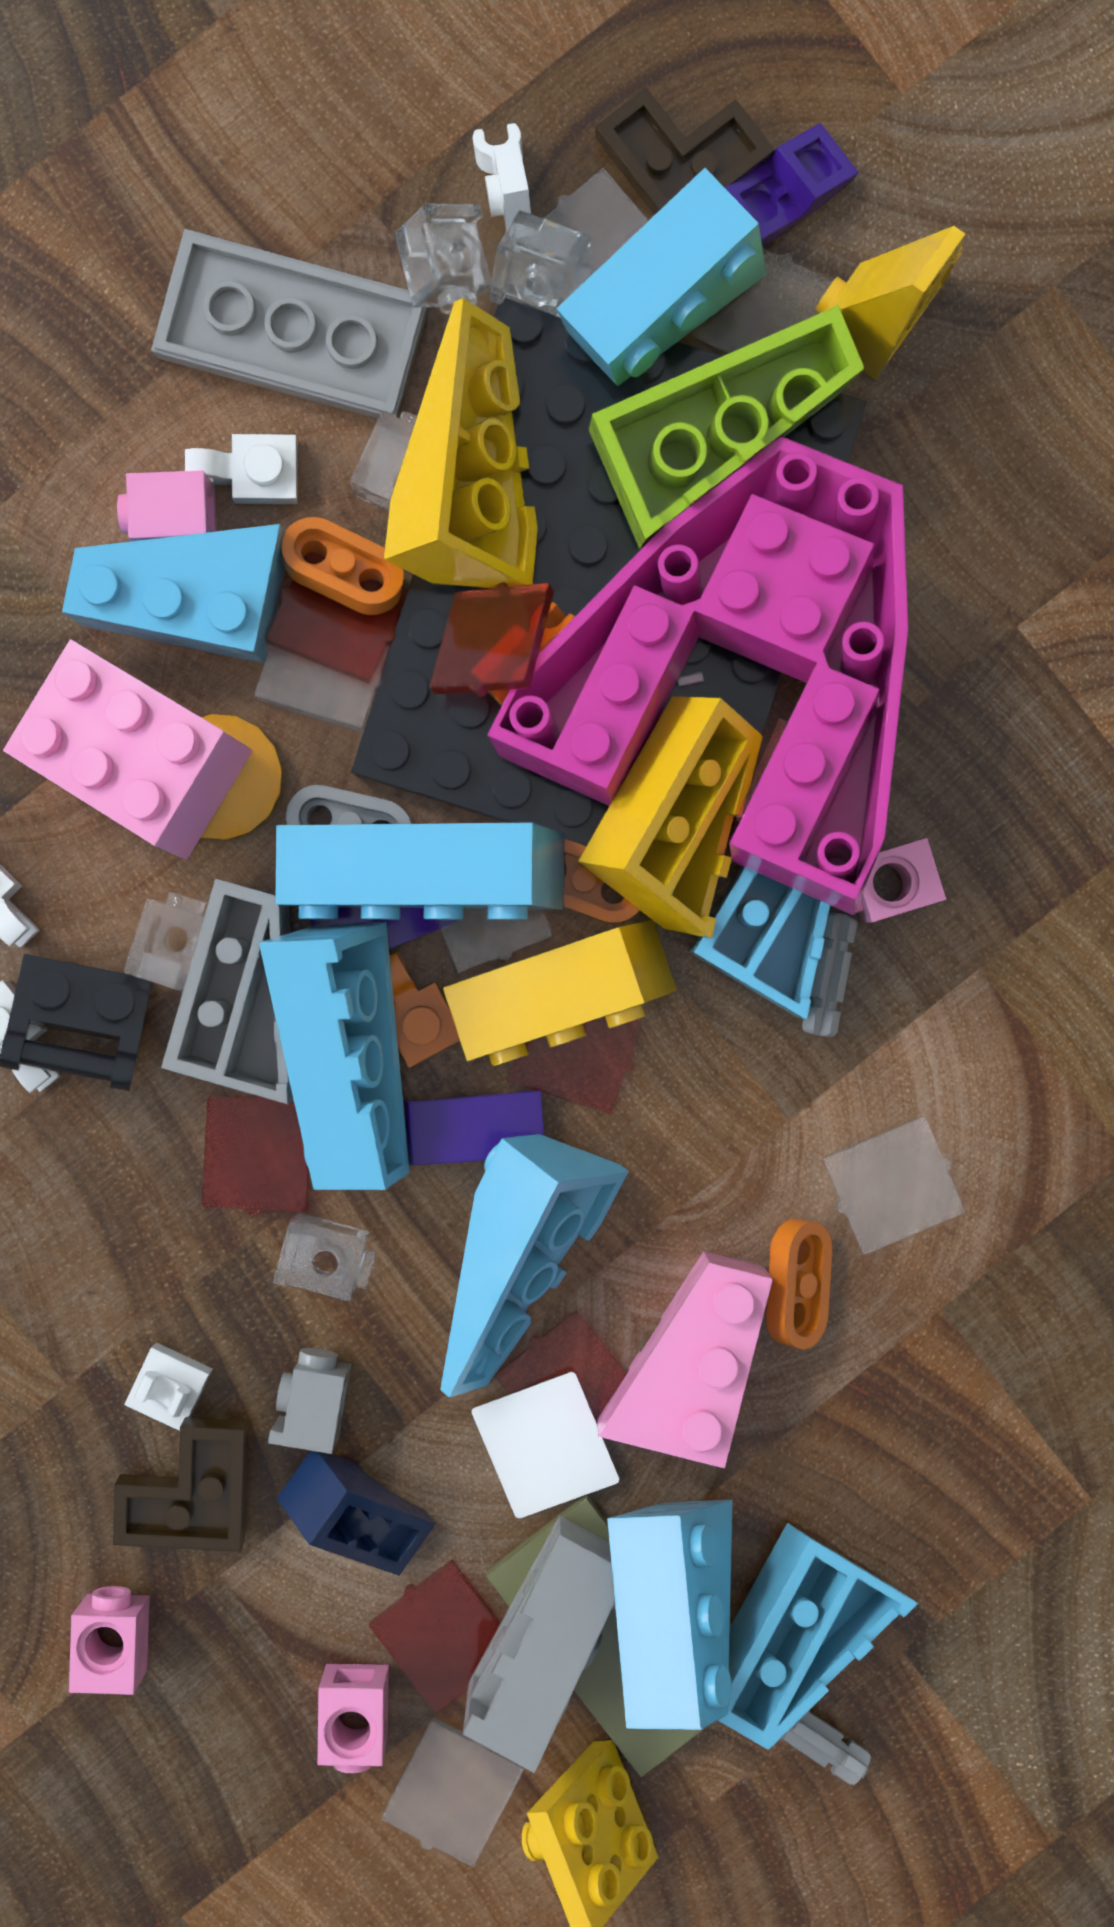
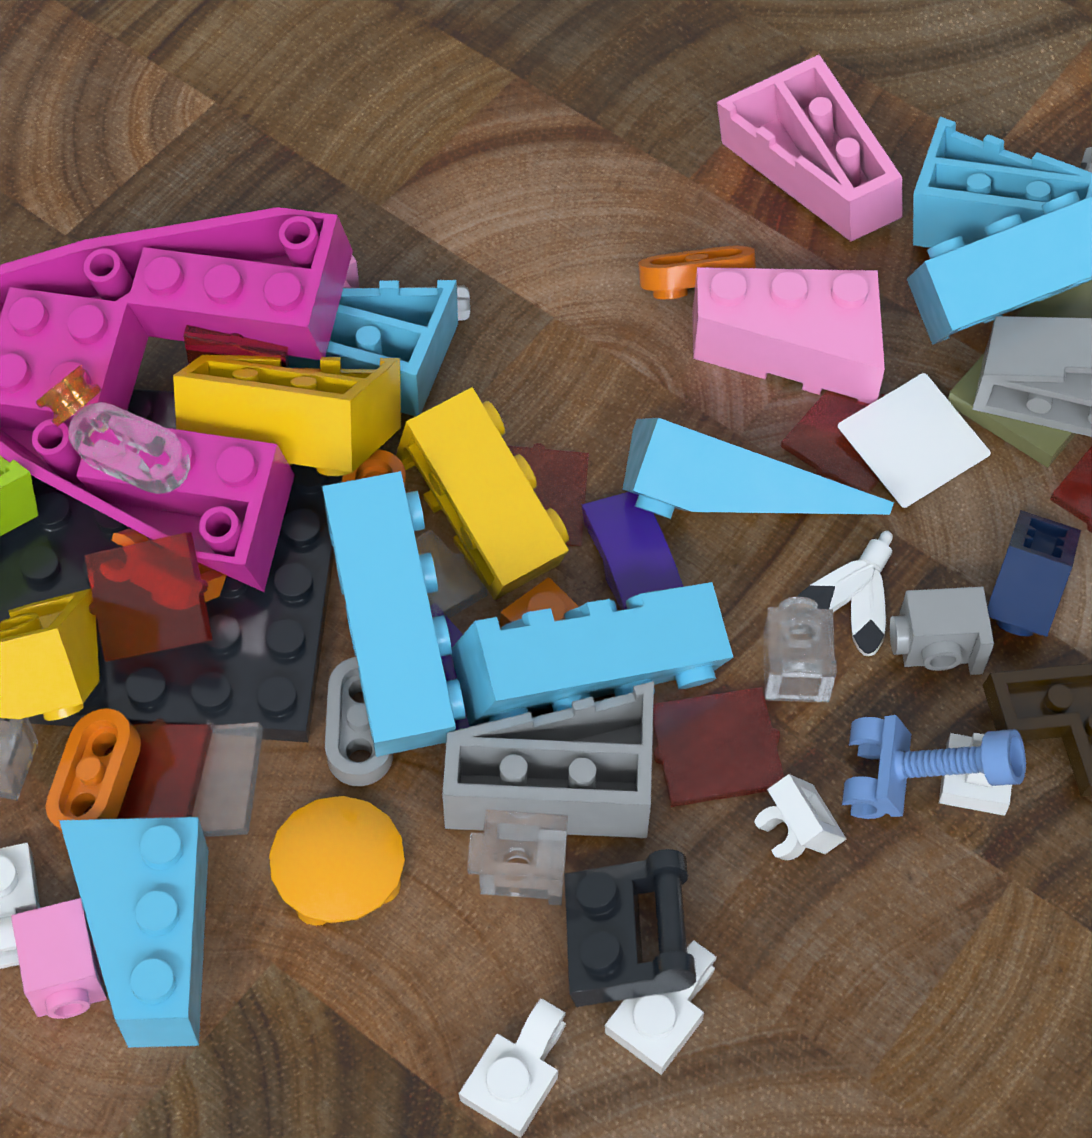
camera: 105 degrees left, 30 degrees down
(127, 750) = (325, 925): bright pink brick -> none
(136, 1404) = (998, 757): none -> medium blue bar
(151, 1212) = (805, 815): none -> white tile
(390, 1341) = (862, 585): none -> white piece
(618, 628) = (134, 435): none -> clear beam
(703, 584) = (68, 395): none -> clear orange bush
(893, 1185) = (589, 228): clear piece -> none
(923, 1457) = (814, 147): none -> bright pink wedge

